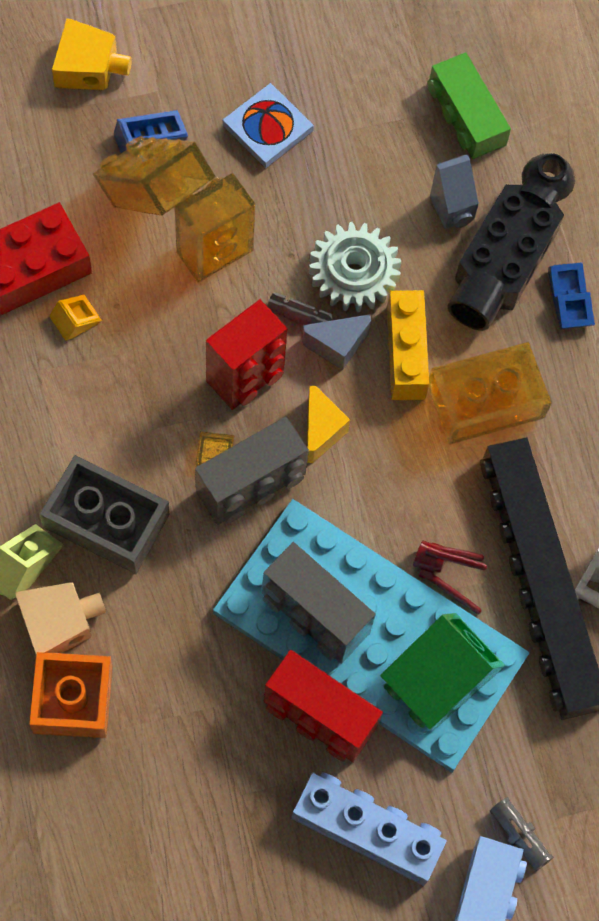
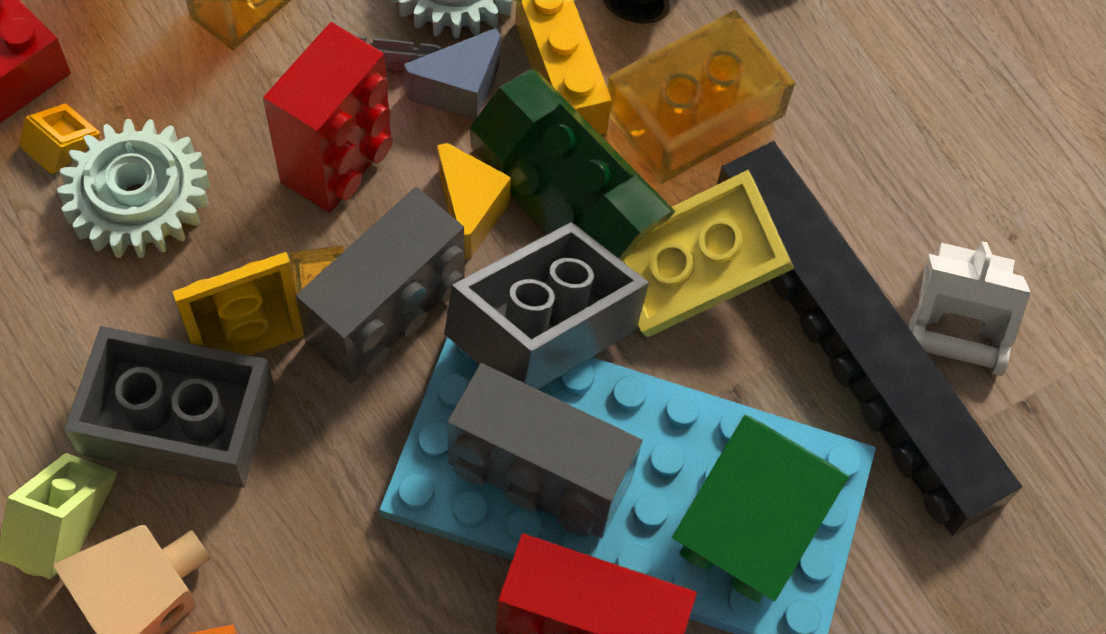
camera: 15 degrees left, 5 degrees down
(119, 384) = (106, 212): none -> light aqua gear
(160, 463) = (243, 308): none -> yellow slope
(347, 512) = (546, 307): none -> dark grey brick
(386, 426) = (564, 166): none -> dark green piece
(432, 558) = (690, 347): dark red plant -> none
(454, 500) = (707, 253): none -> light yellow plate

